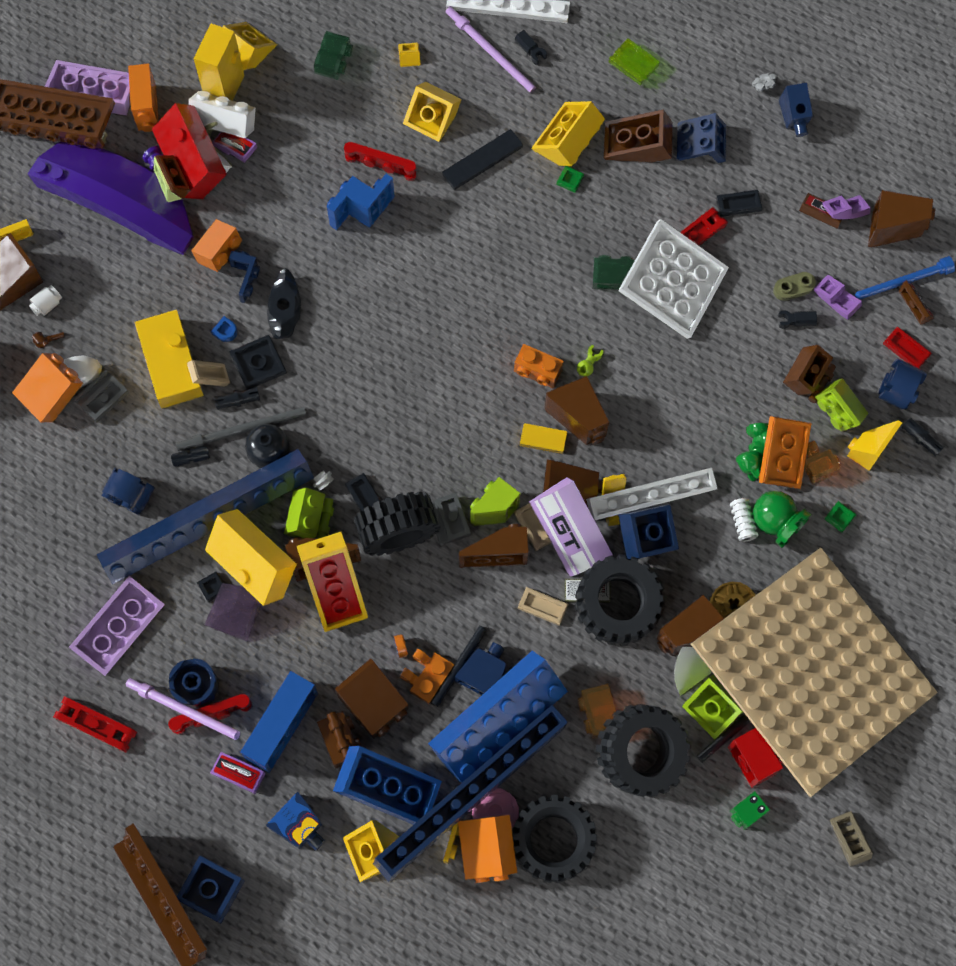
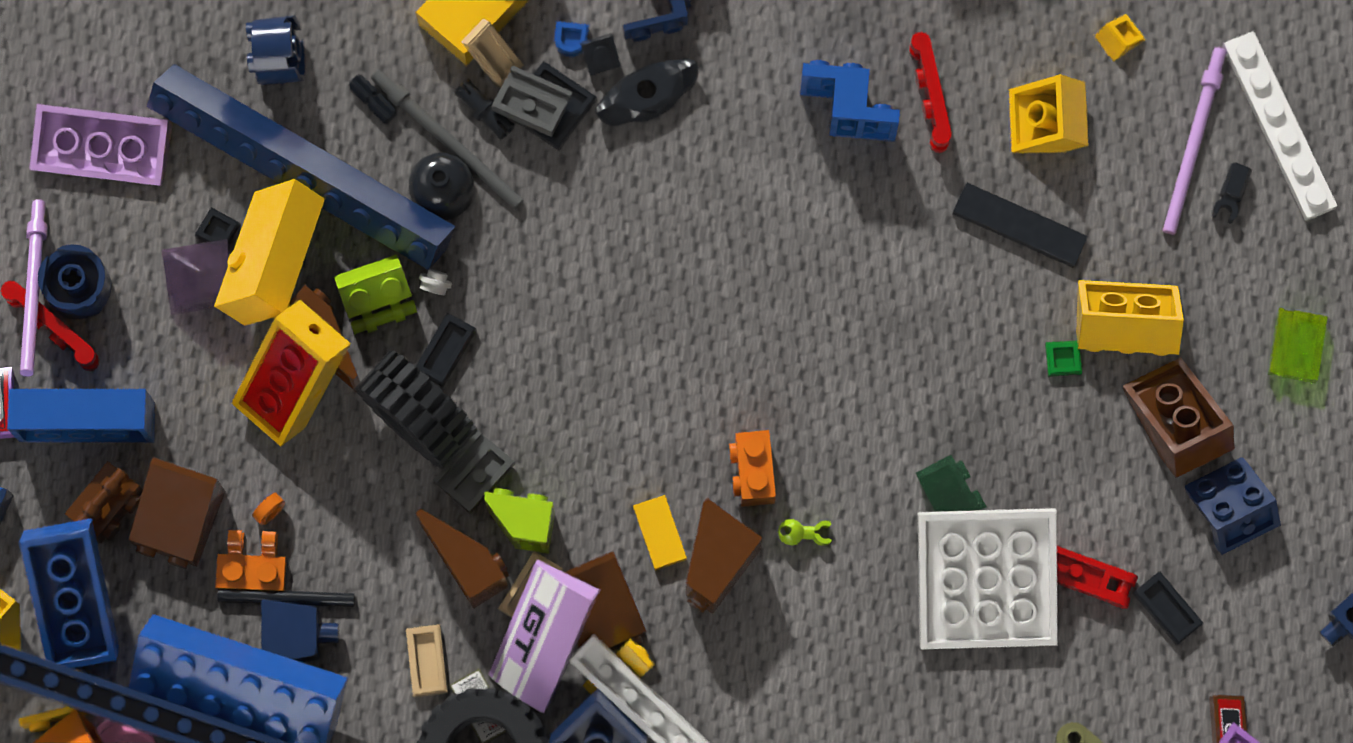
camera: 60 degrees right, 5 degrees up
(246, 318) = (600, 54): none -> black plate
(250, 367) = (532, 101): none -> dark grey plate

